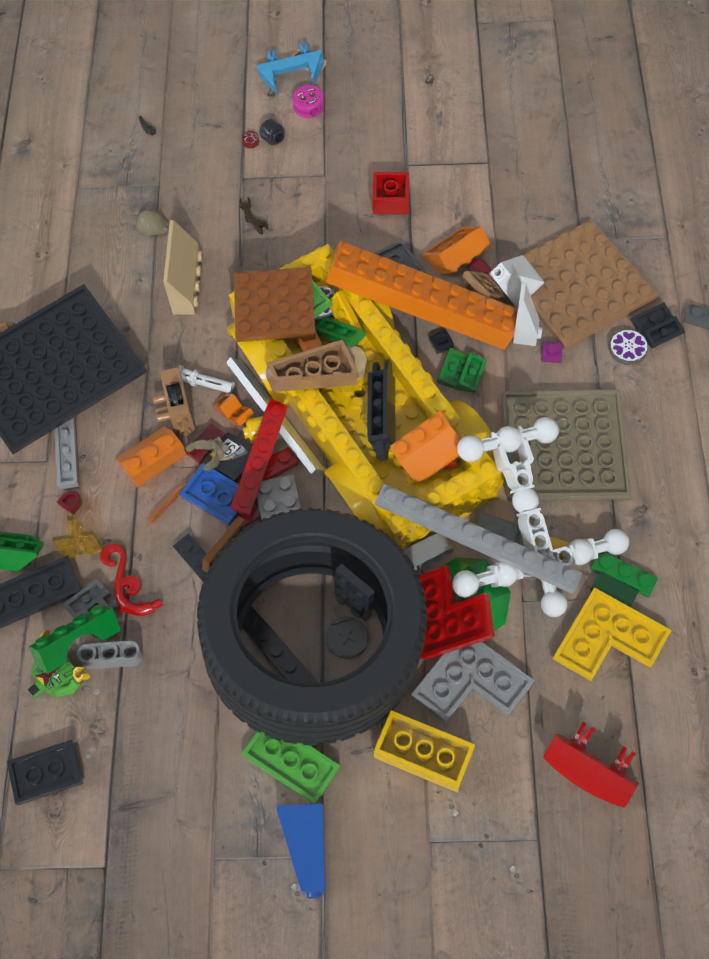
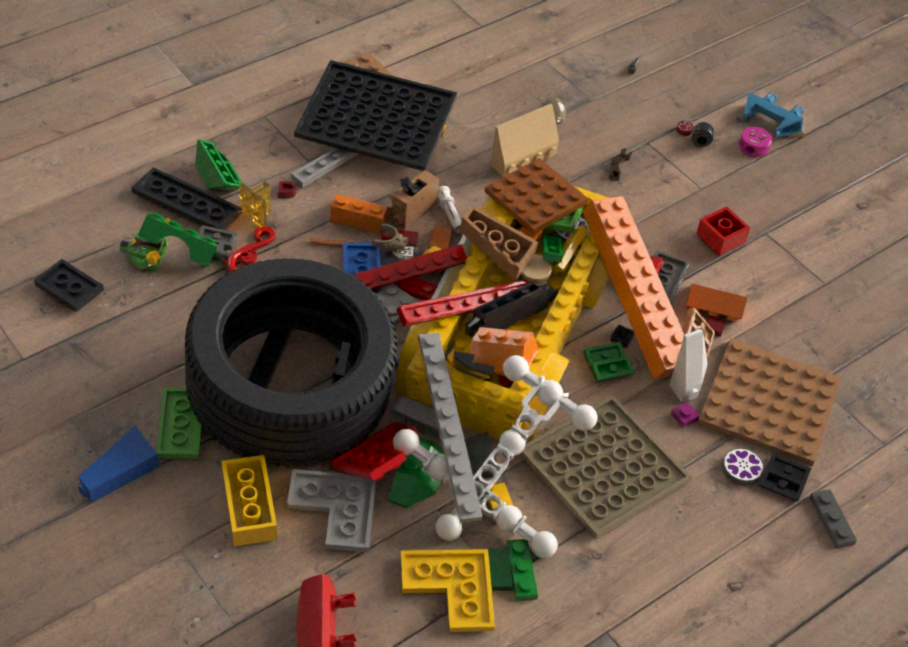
camera: 45 degrees right, 15 degrees down
(101, 650) = (184, 272): light grey beam -> none
(355, 446) = (452, 305): none -> tile
(431, 479) = (465, 363): none -> black slope
(514, 272) = (723, 344): white slope -> none

